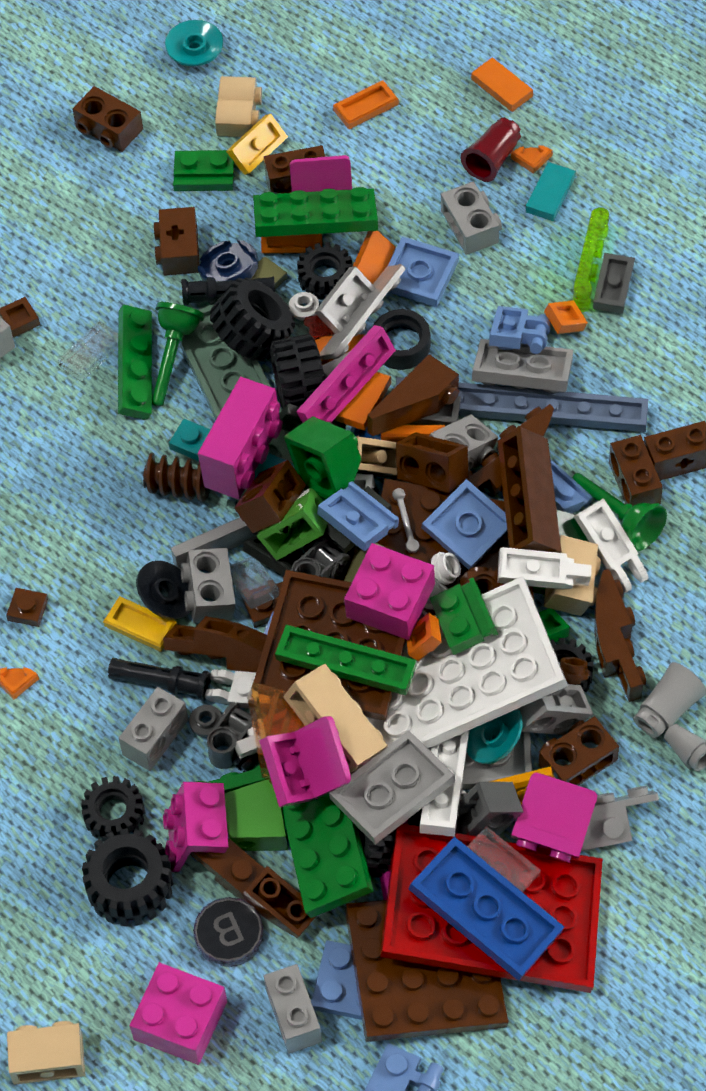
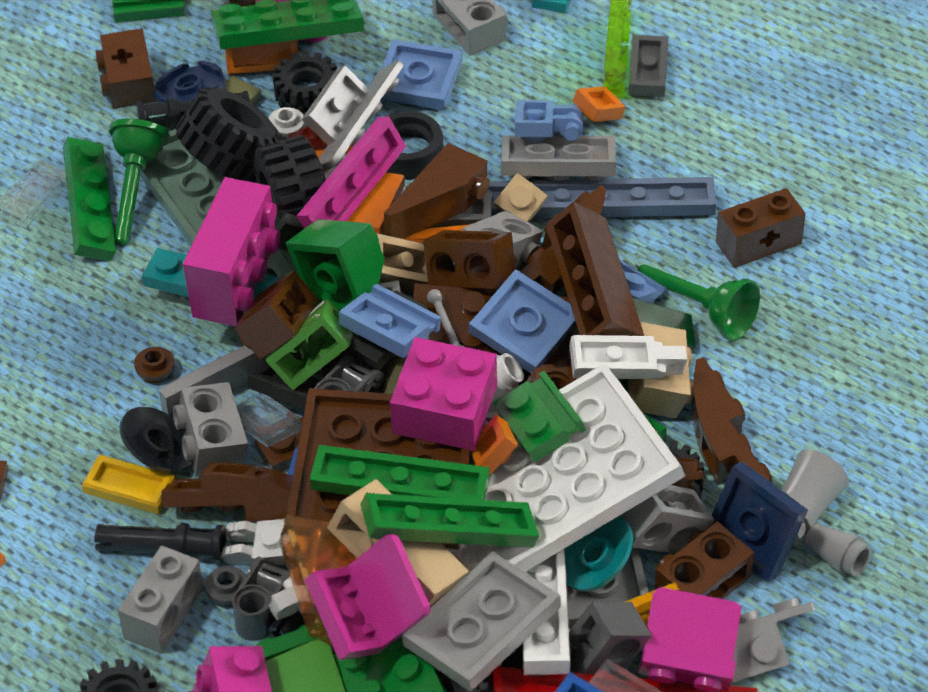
camera: 10 degrees left, 10 degrees down
(171, 527) = (156, 371): none -> reddish brown plate
(174, 478) = (154, 315): reddish brown piece -> none
(374, 255) = (364, 58): orange tile -> none
(377, 704) = (449, 520): none -> green plate
(484, 405) = (521, 198): none -> tan plate
(613, 543) = (705, 334): white hinge -> none
(627, 718) = (759, 517): none -> dark blue plate
(635, 471) = (711, 251): reddish brown brick -> none

